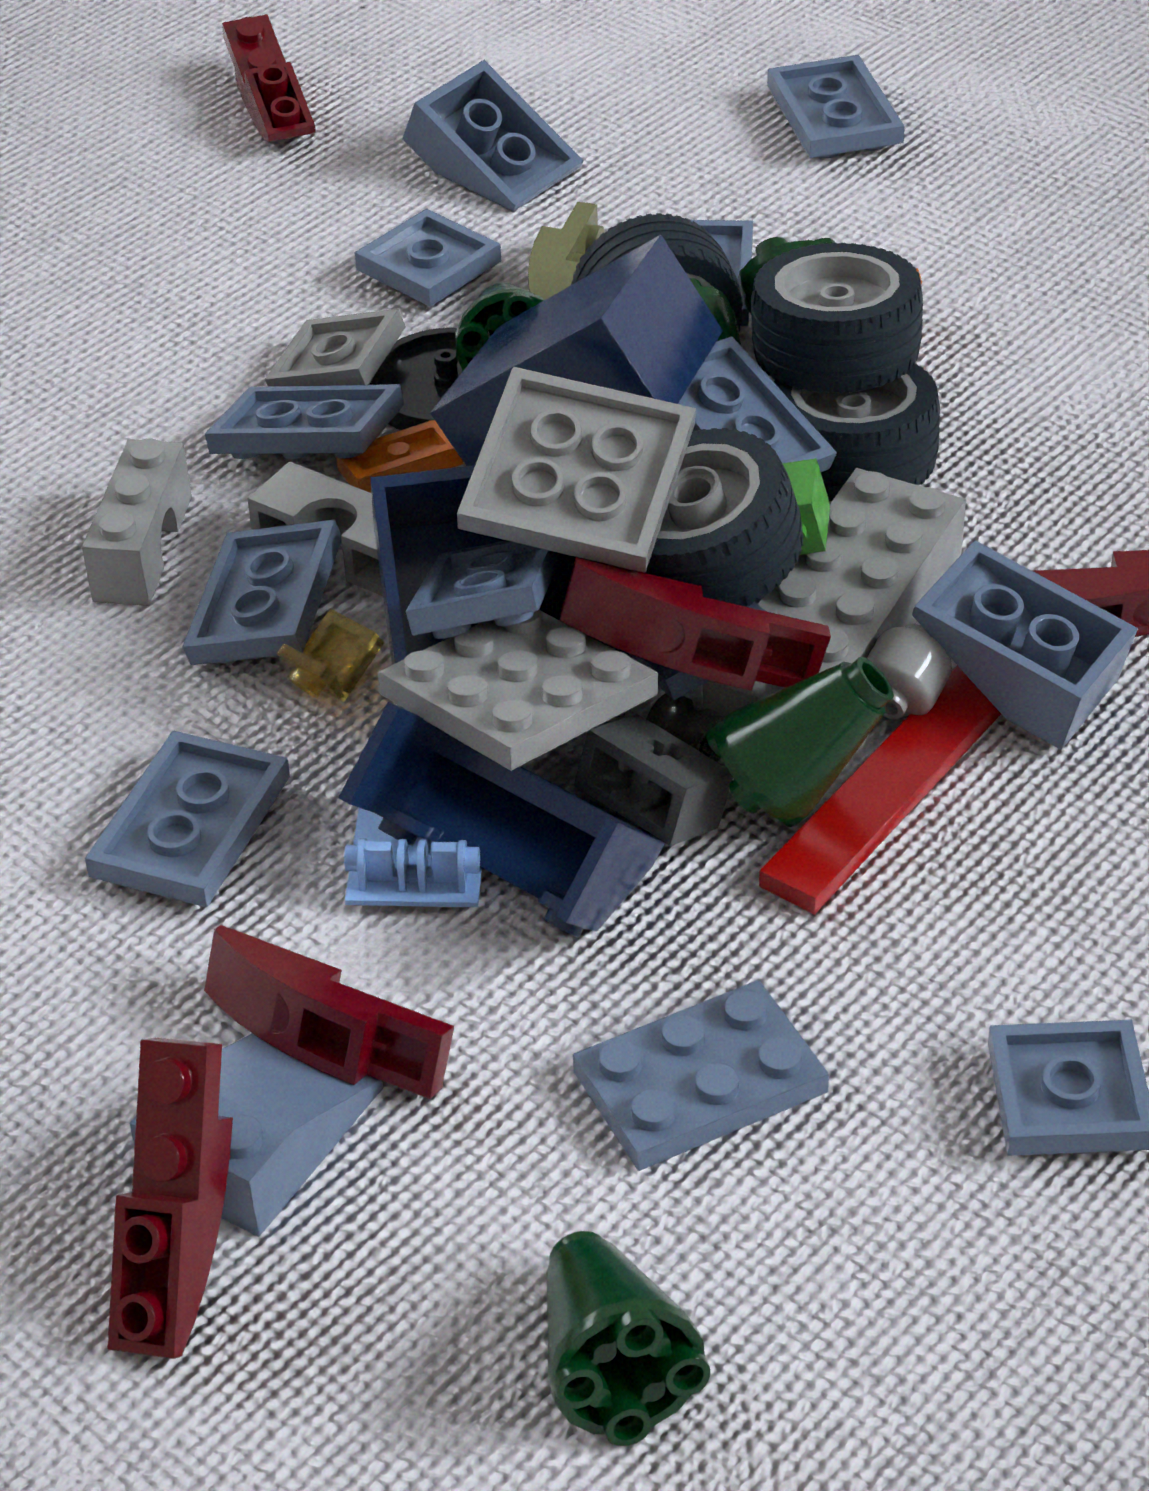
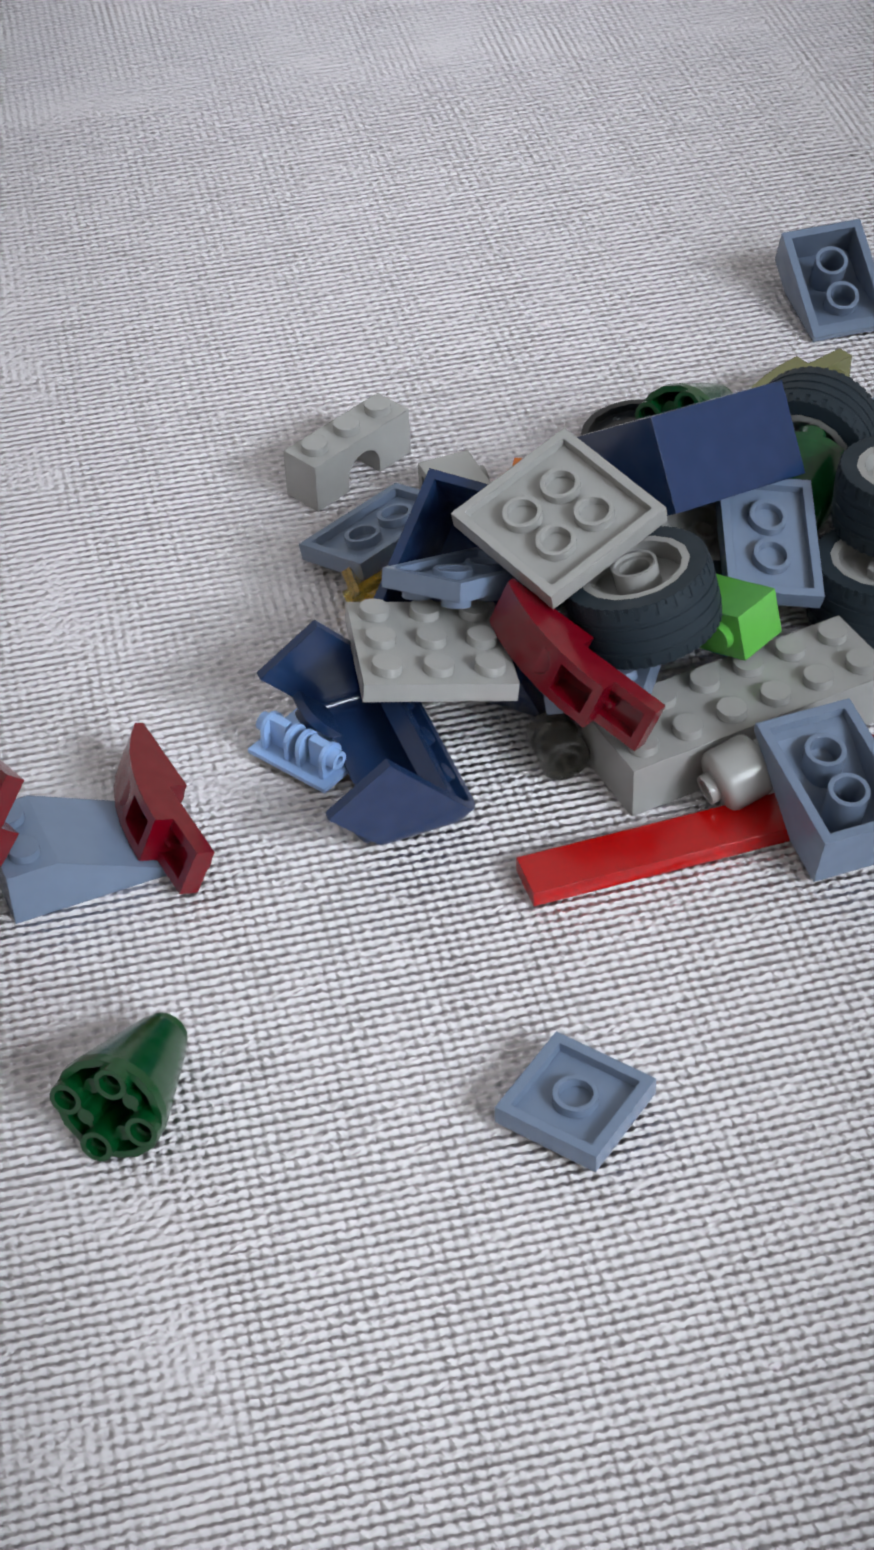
camera: 35 degrees right, 0 degrees up
(188, 818) = (202, 652): sand blue plate -> none
(266, 80) = (719, 183): dark red slope -> none
(304, 420) = (504, 425): sand blue plate -> none
(338, 350) = (579, 392): light grey plate -> none
(428, 257) = (712, 350): sand blue plate -> none
(653, 779) = (500, 764): dark grey brick -> none
(699, 1074) = (355, 966): sand blue plate -> none
(799, 738) = (594, 780): dark green cone -> none

